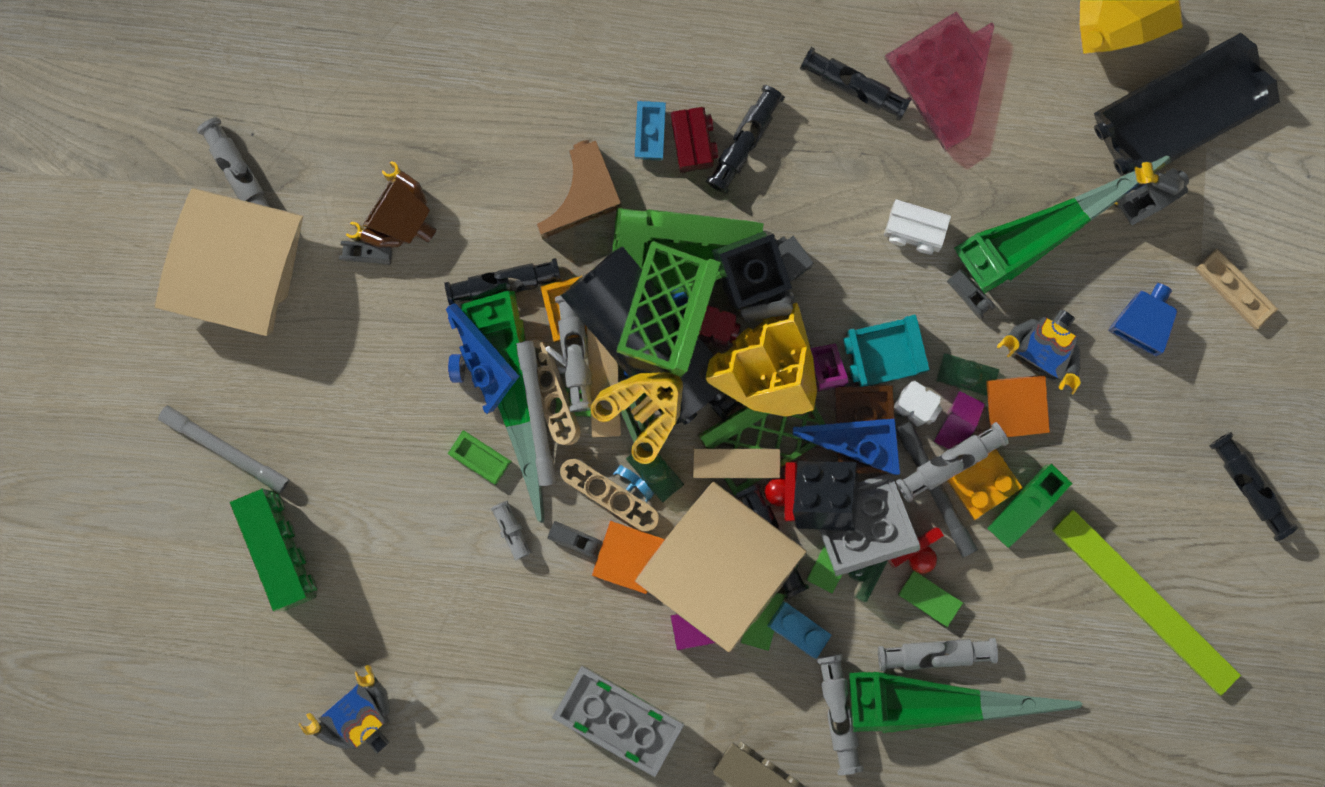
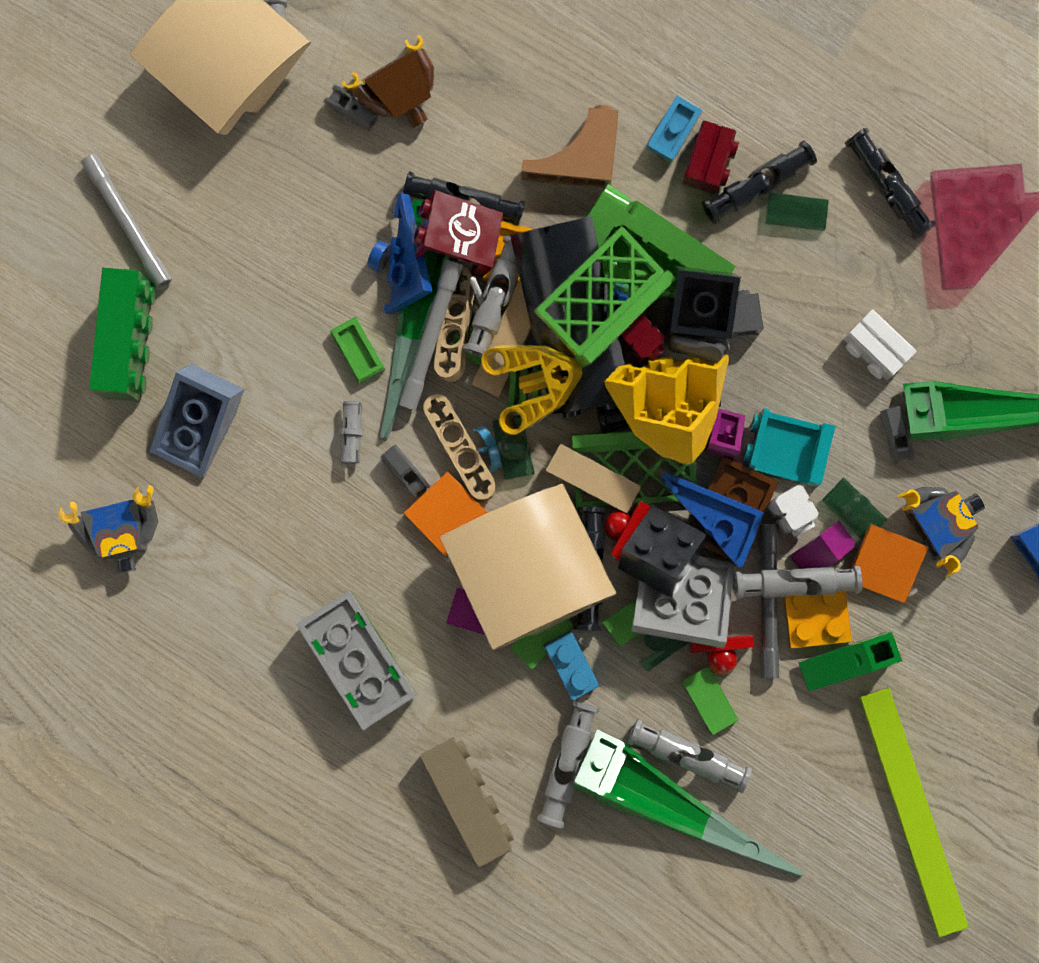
camera: 25 degrees right, 0 degrees up
(373, 588) = (195, 419): none -> sand blue slope
(514, 313) = (459, 231): none -> dark red panel
(789, 147) = (796, 211): none -> clear green tile

